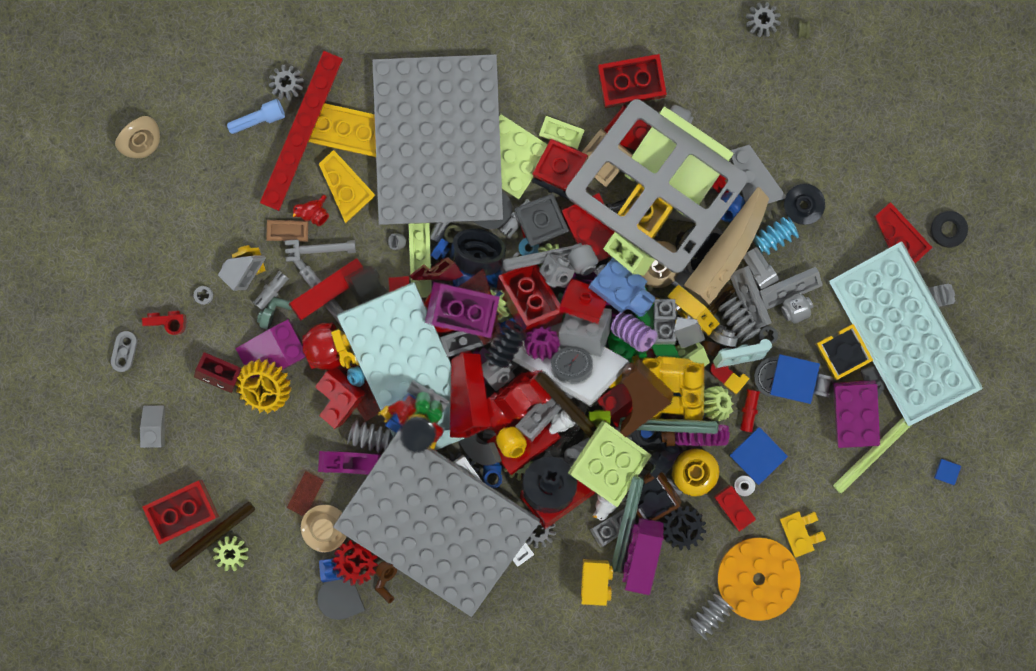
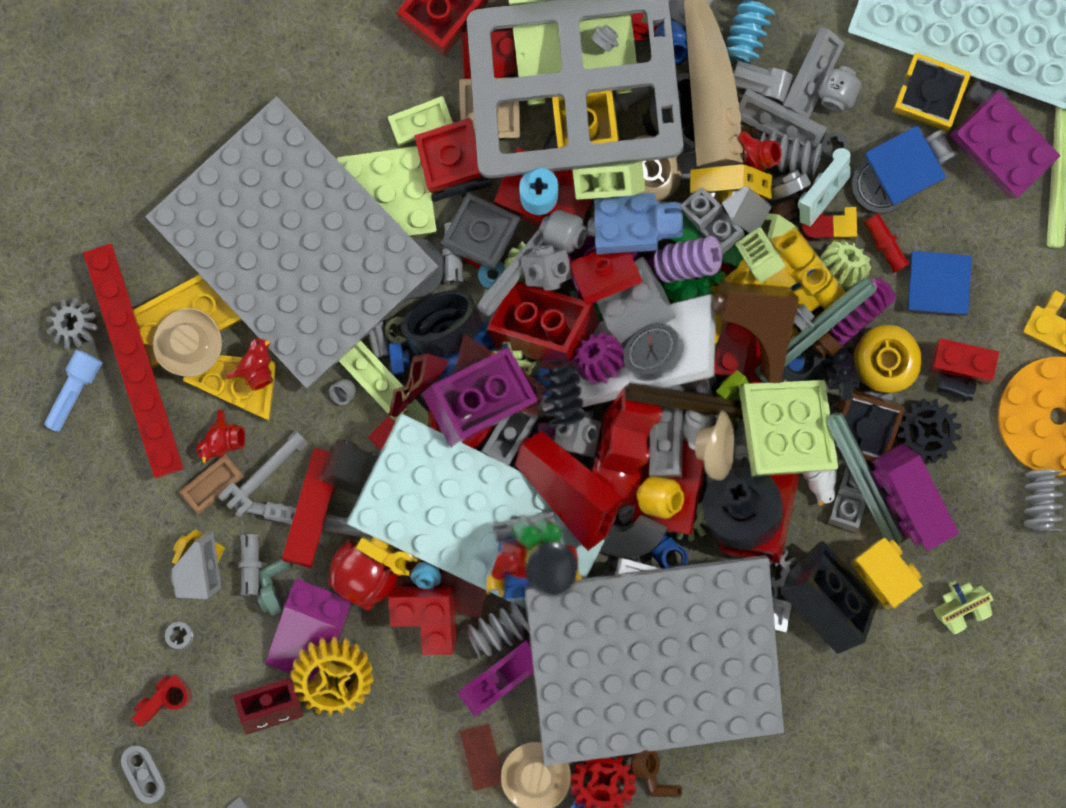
camera: 40 degrees left, 5 degrees down
(337, 146) = (187, 342): none -> tan hat
(362, 189) = (254, 366): none -> red animal
(555, 570) = (830, 598): none -> black slope
(562, 442) = (716, 447): none -> tan hat
(587, 219) = (538, 179): none -> medium azure piece
(621, 630) = (962, 601): none -> yellowish green hips
(667, 414) = (803, 317): none -> light grey plate
(669, 372) = (760, 255): none -> yellowish green slope
(695, 175) = (606, 37): none -> light grey plate
(719, 518) = (957, 387): none -> black pin
(721, 307) = (760, 153): none -> red animal
(744, 479) = (949, 319): white plate -> none

